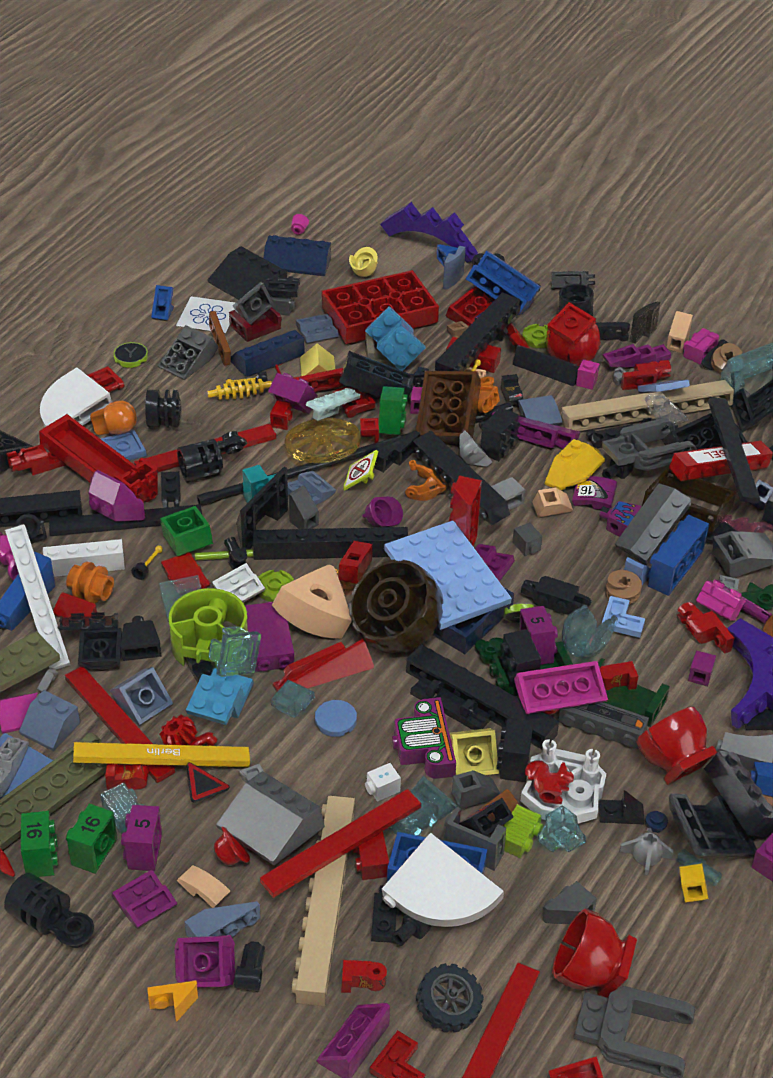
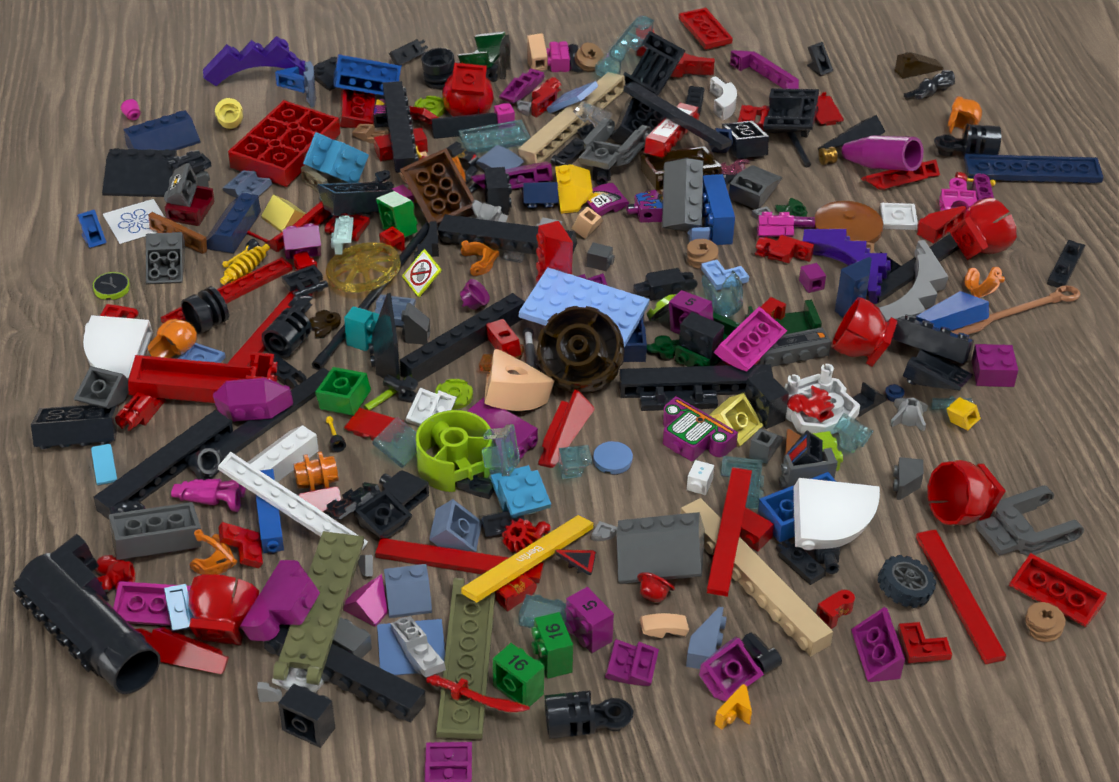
camera: 40 degrees left, 0 degrees up
(24, 428) = (102, 388): none -> dark grey slope
(174, 707) = (495, 522): none -> black panel
(217, 405) = (244, 284): none -> red tile
(238, 465) = (325, 322): none -> dark brown plate
(263, 423) = (305, 277): none -> black plate
(536, 456) = (540, 194): none -> dark blue slope
(561, 387) = (487, 137): none -> clear light blue plate
(625, 315) = (487, 50): none -> dark green panel
(717, 697) = (852, 284): none -> dark blue slope

